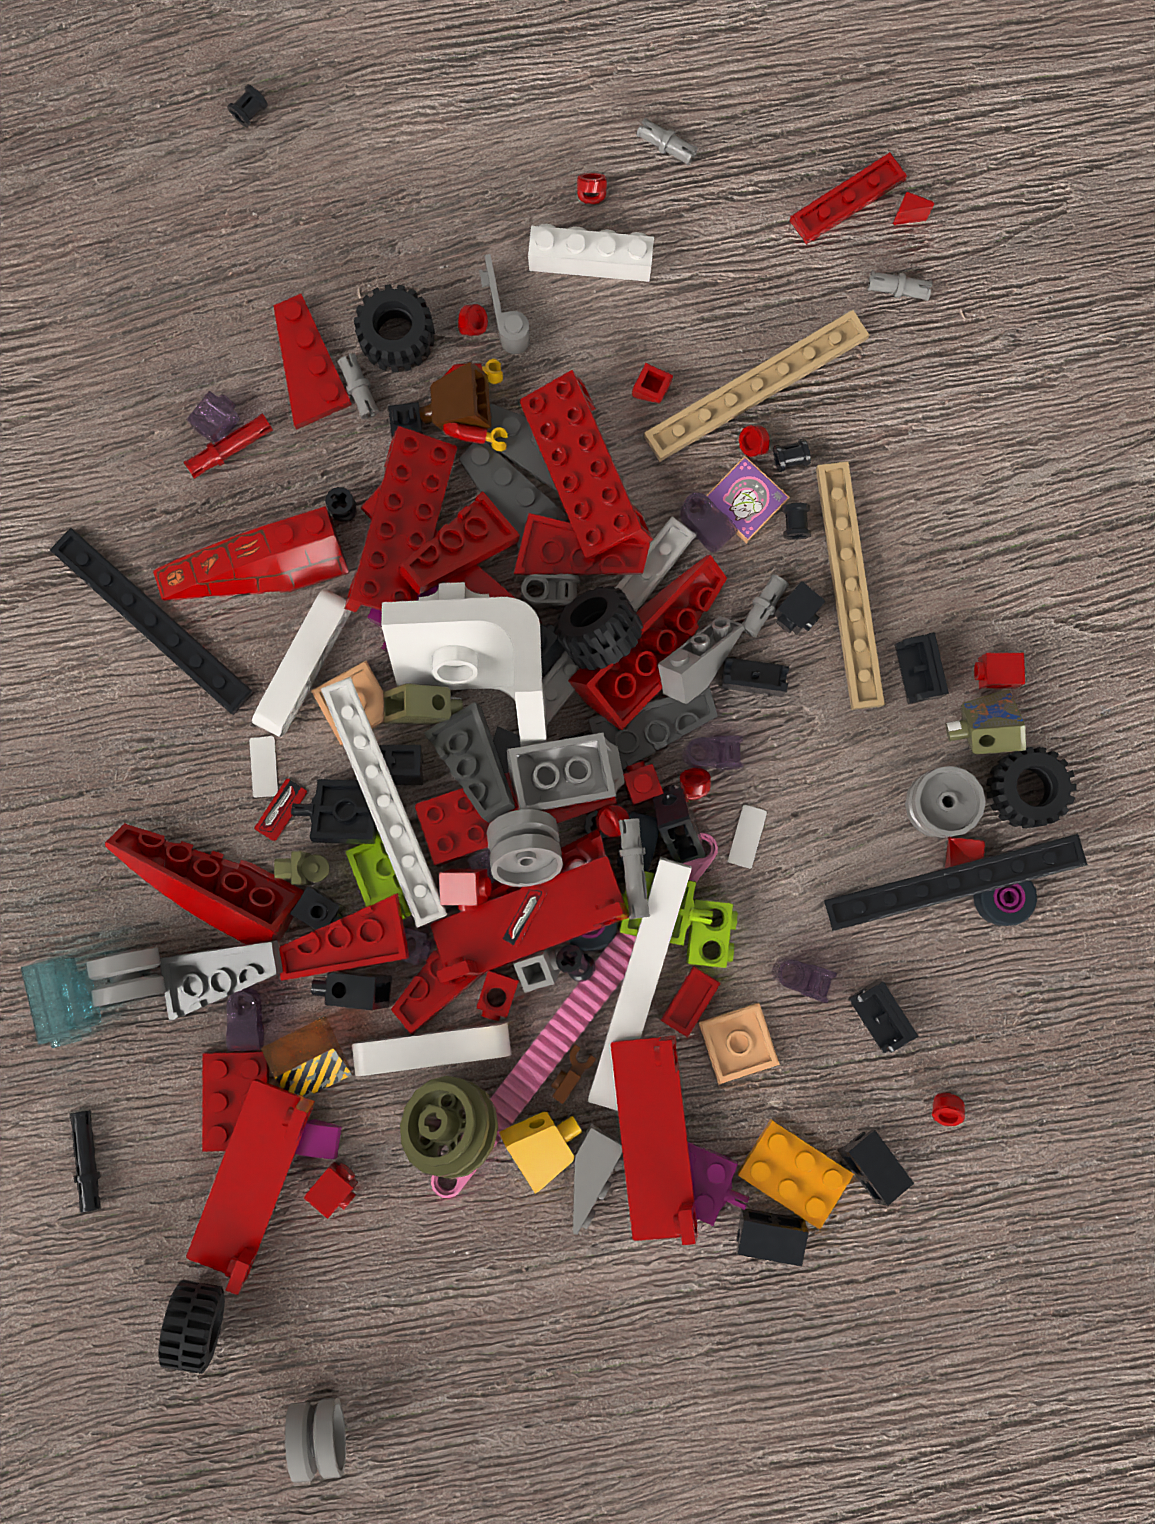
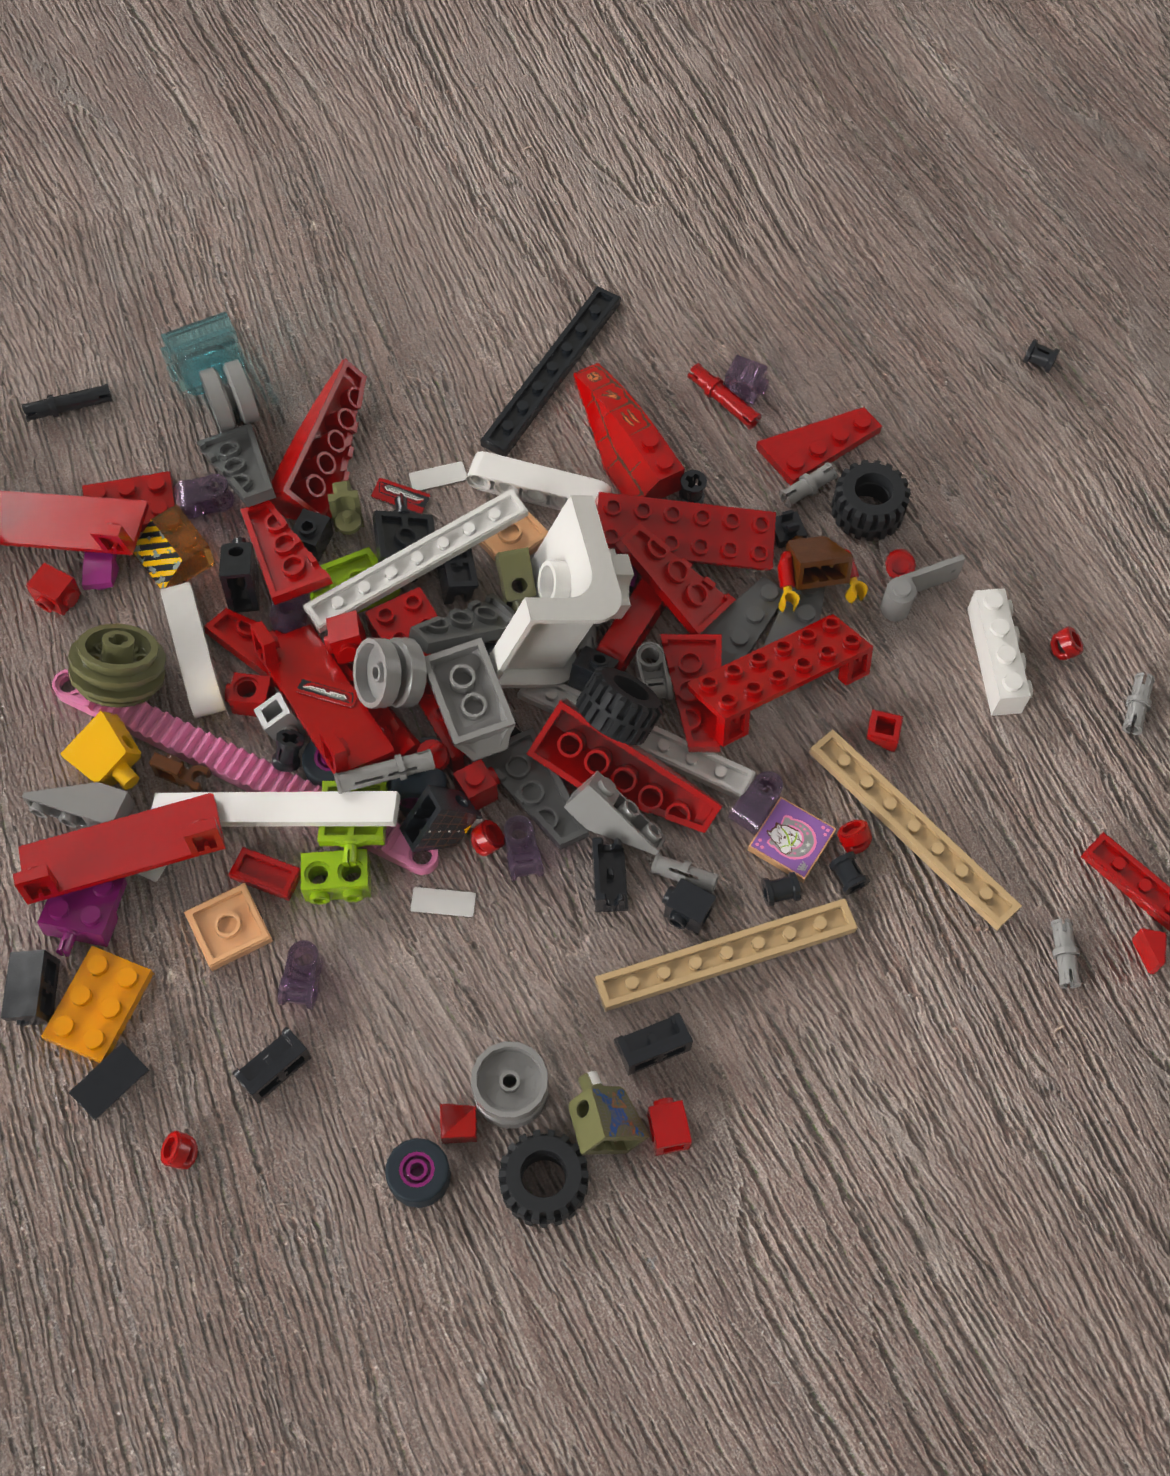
camera: 80 degrees right, 20 degrees down
(956, 882) = (426, 1113): black tile -> none

